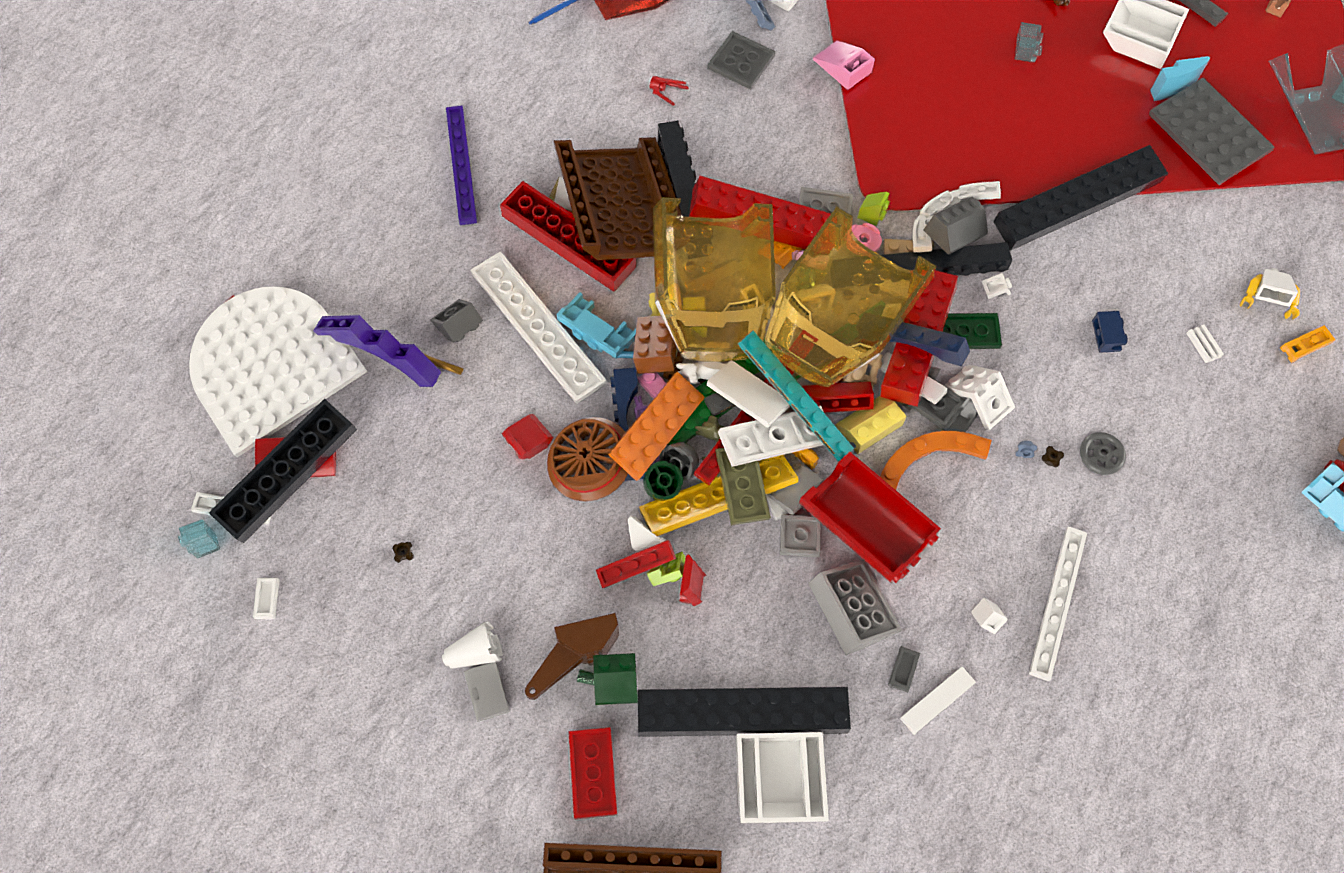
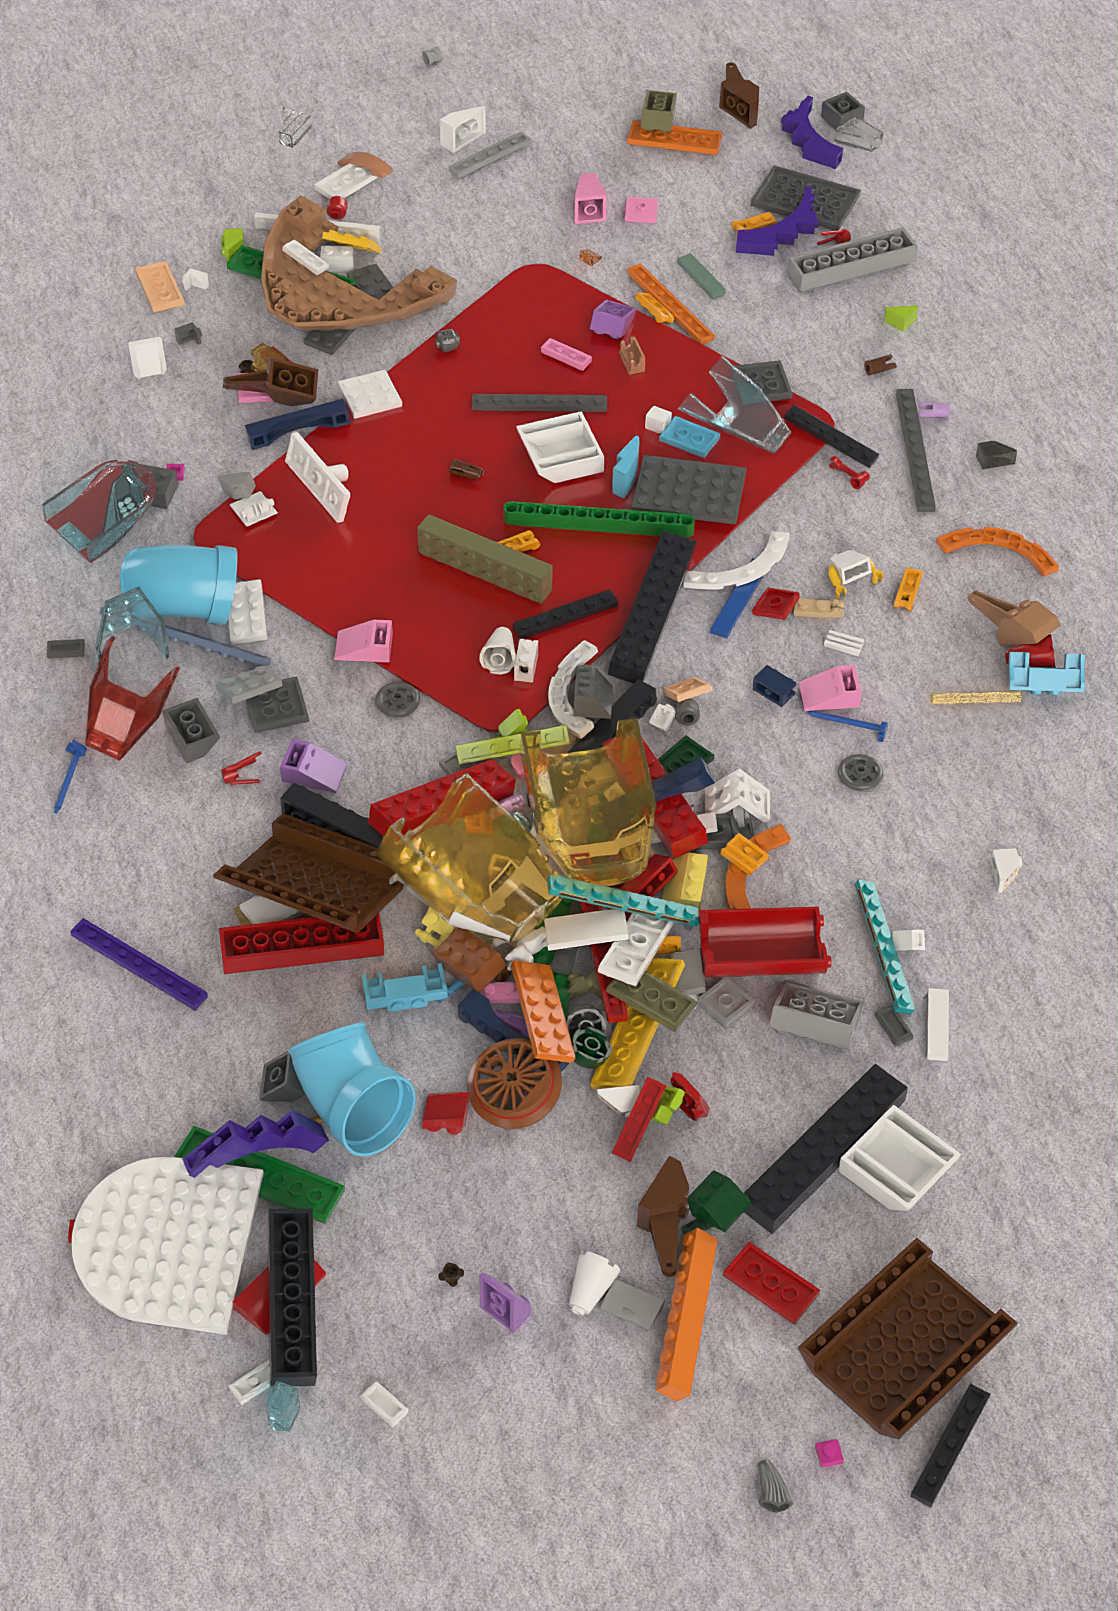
camera: 45 degrees left, 15 degrees down
(376, 387) = (281, 1181): none -> green plate
(403, 604) = (502, 1302): none -> medium lavender slope
(471, 366) = (353, 1089): none -> medium azure cylinder
(507, 736) = (686, 1315): none -> orange brick
(539, 327) = (387, 1030): white plate -> none
(663, 32) = (191, 729): none -> dark grey slope
(713, 121) = (312, 767): none -> medium lavender slope
(736, 31) = (248, 684): none -> light grey plate
(828, 132) = (410, 706): none -> dark grey plate
(862, 216) = (508, 745): none -> lime plate
(928, 140) = (499, 652): none -> white cone
(935, 439) = (744, 854): none -> light orange plate
(942, 163) = (526, 657): none -> white brick
(964, 603) = (884, 947): none -> teal plate
(993, 66) = (485, 558): none -> olive brick
(1011, 152) = (565, 614): none -> black plate
(1019, 297) = (687, 712): none -> dark grey head
(1026, 449) = (809, 811): sand blue plate -> none
(1028, 42) = (489, 521): clear light blue piece -> none
(1029, 73) = (518, 542): none -> light orange plate
(1037, 279) = (686, 689): none -> light nougat tile
(1058, 455) = (831, 802): dark brown plate -> none
(1058, 604) = (942, 893): white plate -> none
(1116, 102) = (597, 519): none -> green beam
(1133, 629) = (1005, 867): none -> white slope
(1150, 371) = (831, 689): none -> bright pink slope
(1157, 434) = (881, 728): none -> blue piece
(1160, 243) = (734, 607): none -> blue tile
(1183, 270) = (776, 603): none -> red tile
(1185, 229) = (760, 566): none -> white plate
(1215, 300) = (819, 608): none -> tan hinge
(1247, 60) = (657, 419): none -> white panel
(1259, 92) = (689, 437): none -> medium azure tile
(1268, 476) = (976, 697): none -> clear yellow axle

